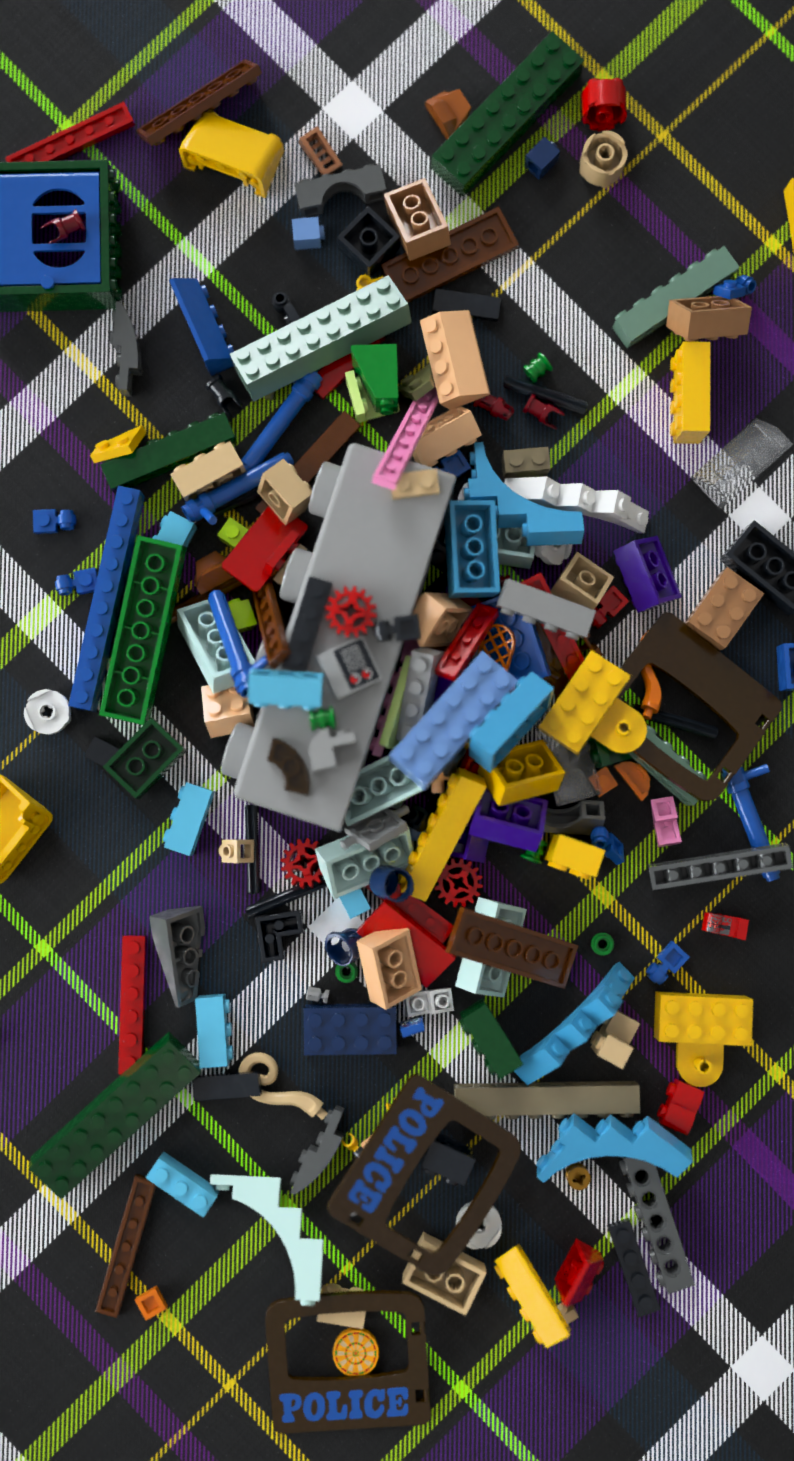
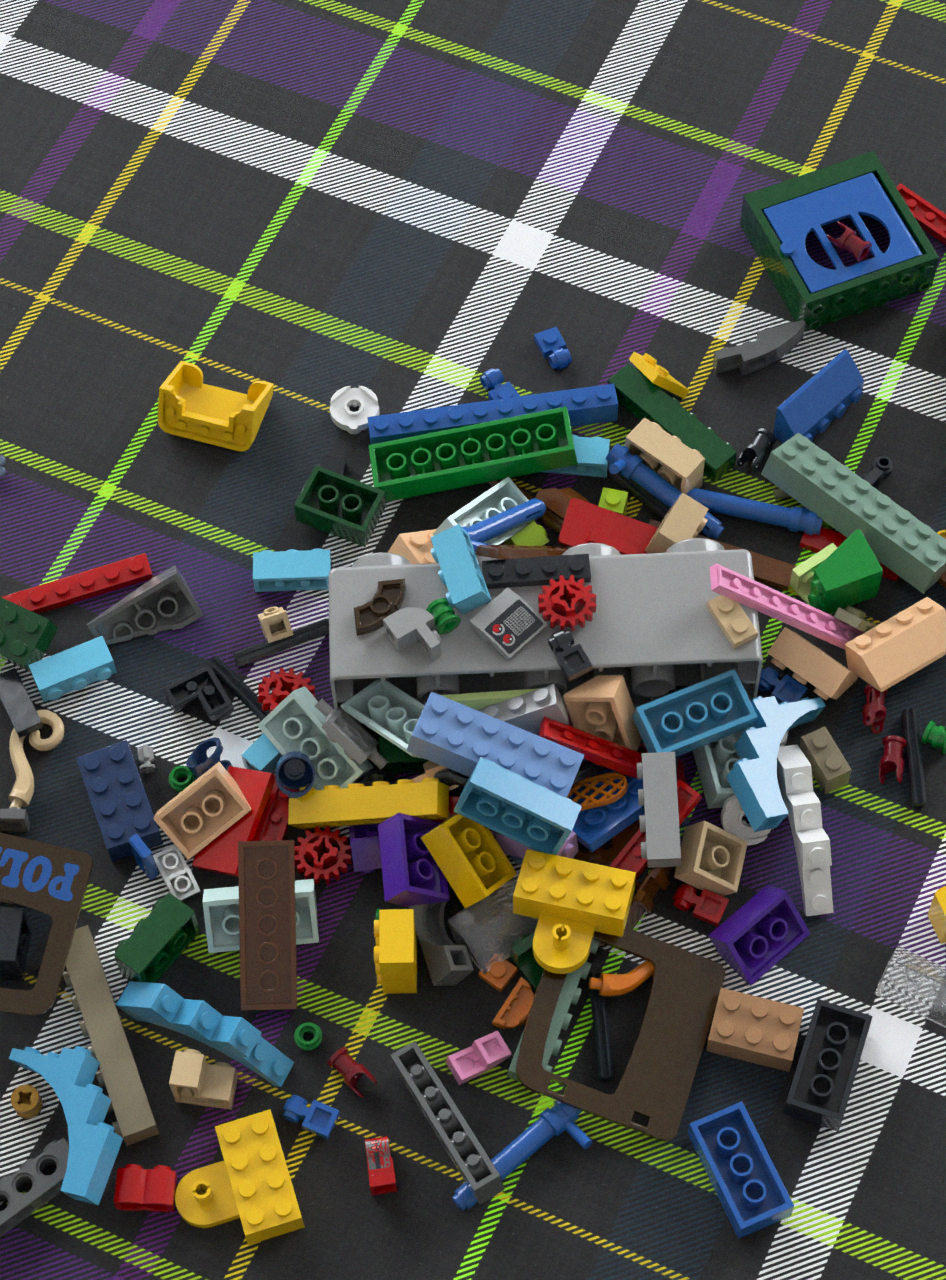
camera: 75 degrees right, 25 degrees down
(609, 842) = (425, 1001): blue plate -> none
(643, 921) = (349, 1069): none -> dark red piece

